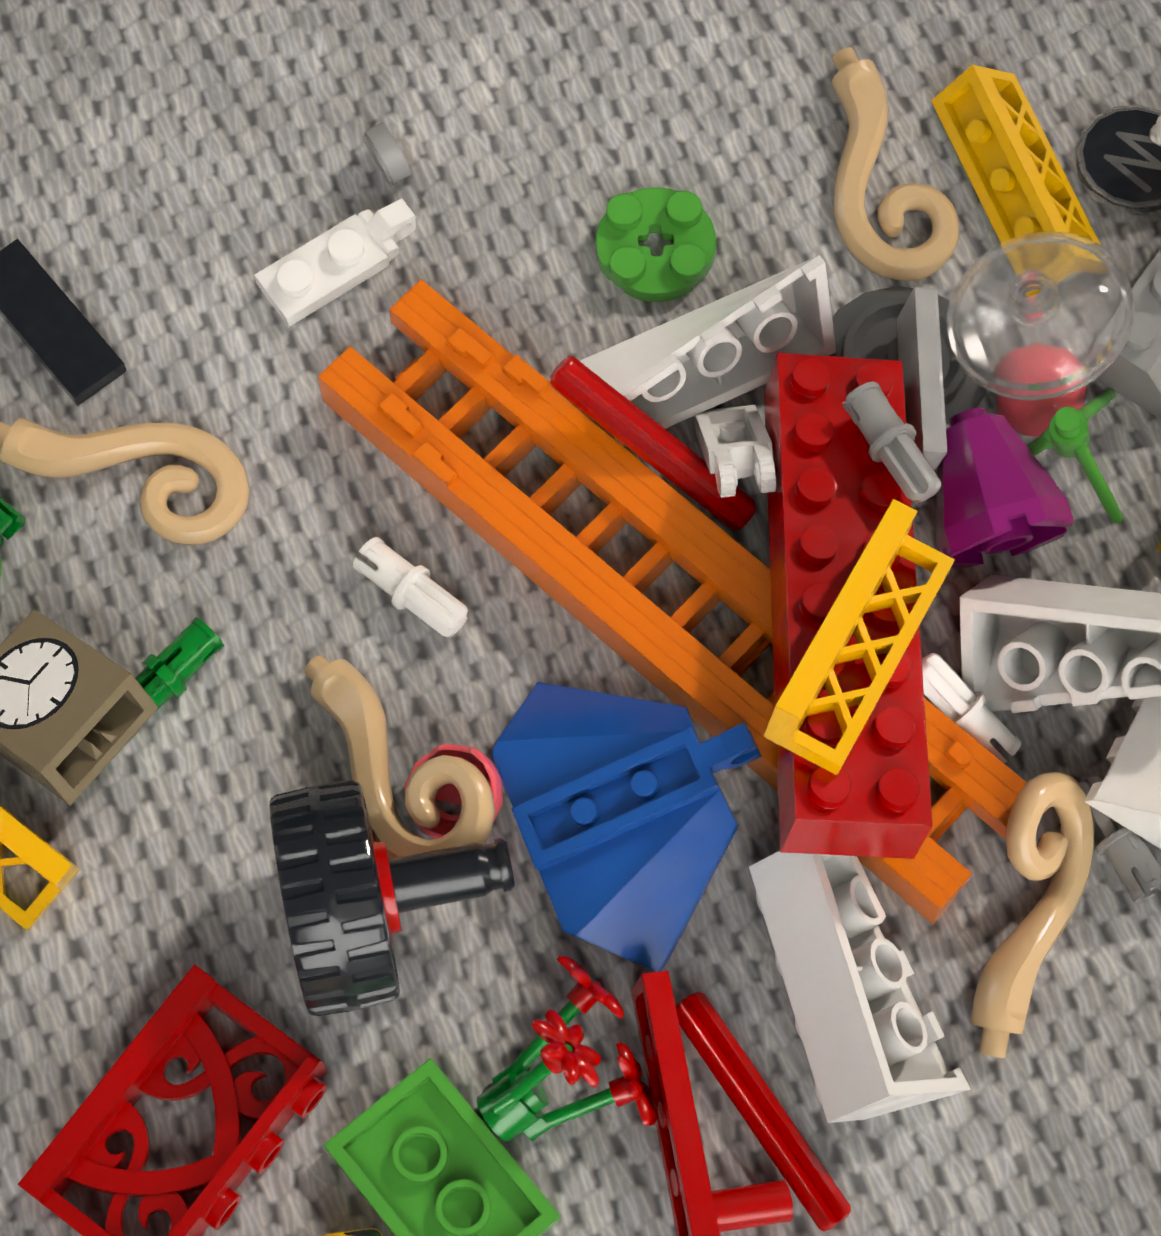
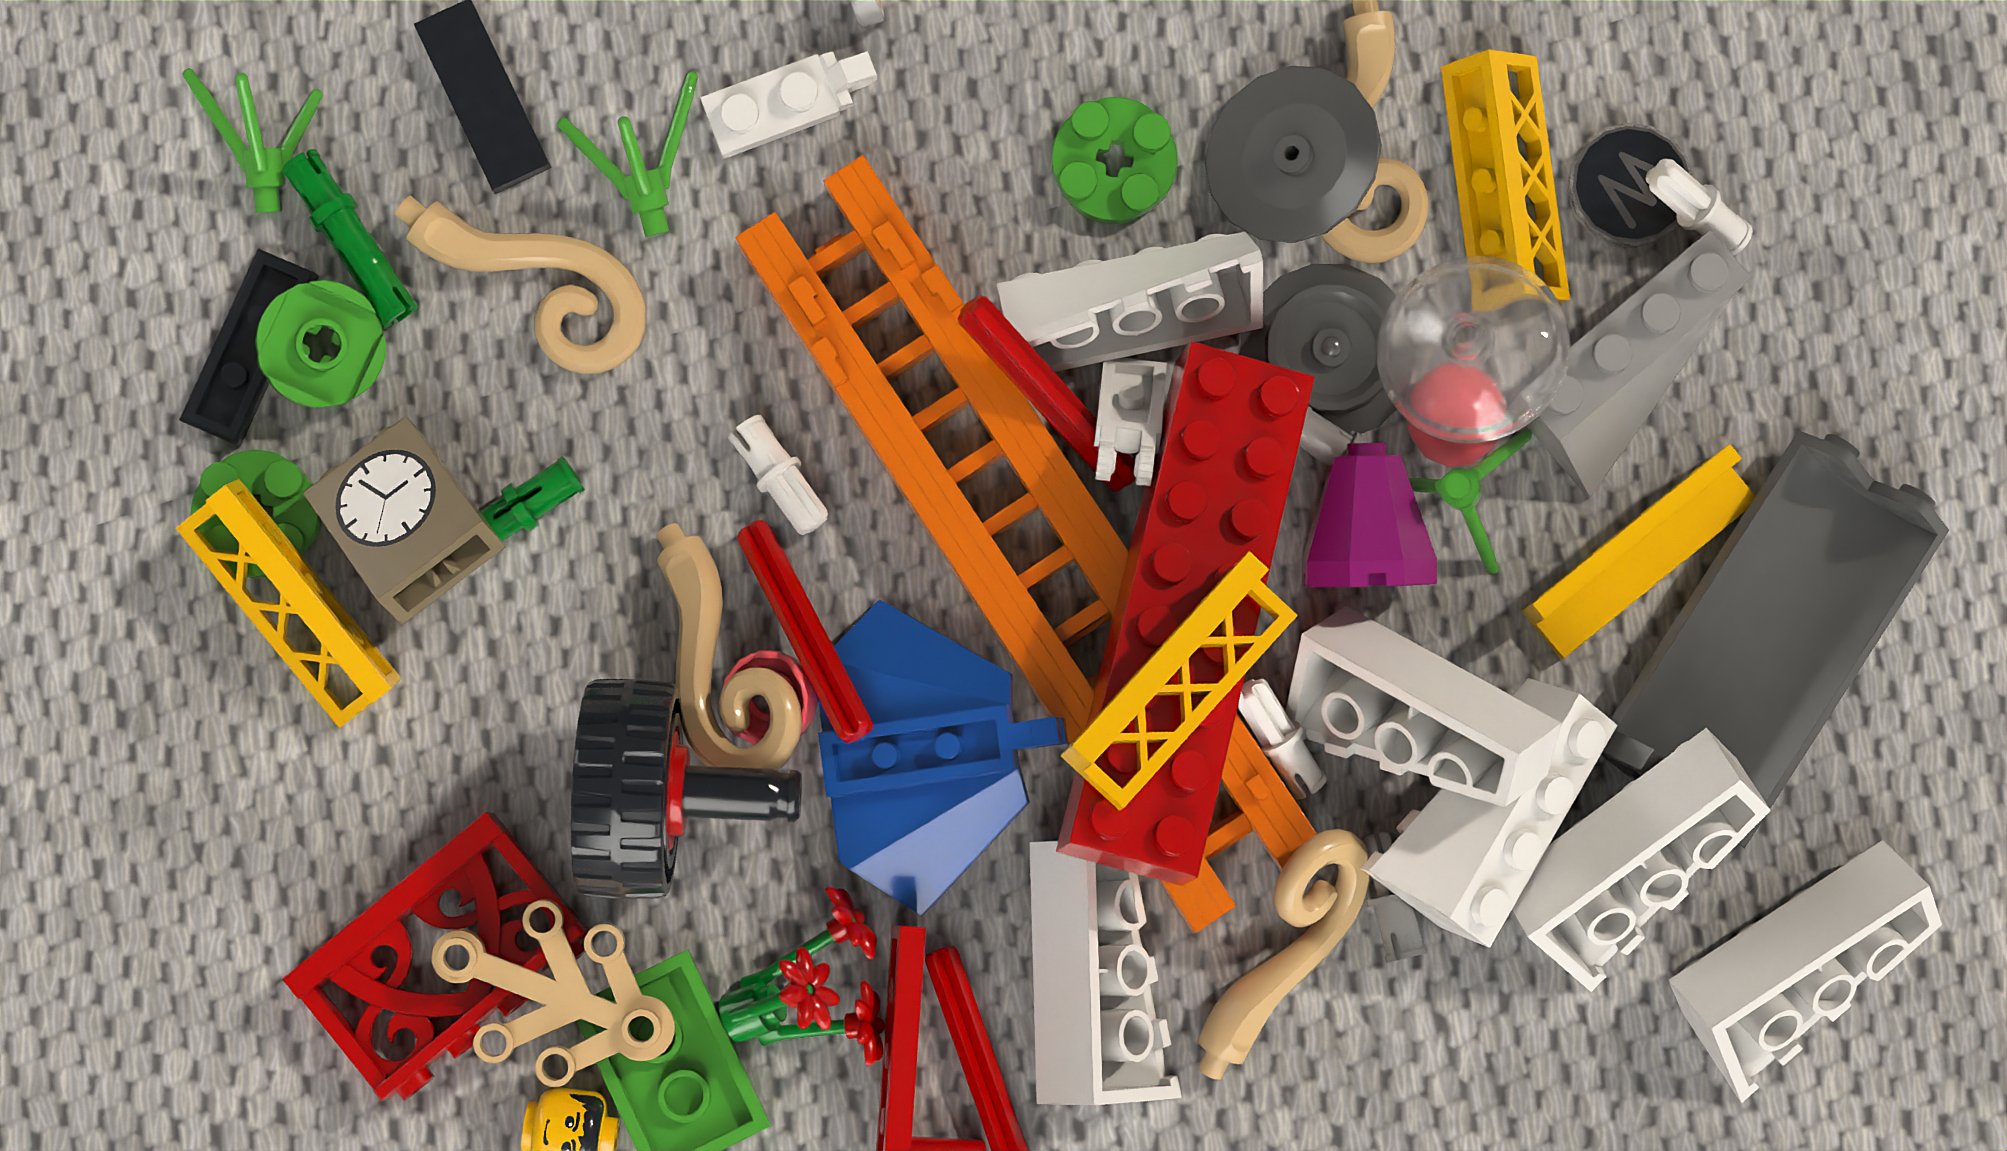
camera: 10 degrees right, 15 degrees up
(221, 361) = (643, 188): none -> bright green plant
(316, 1130) = (564, 997): none -> tan plant
(475, 719) = (805, 632): none -> red axle
(821, 191) = (1293, 154): none -> dark grey piece
(891, 442) = (1273, 476): light grey axle -> none
(922, 372) = (1331, 398): light grey tile -> none

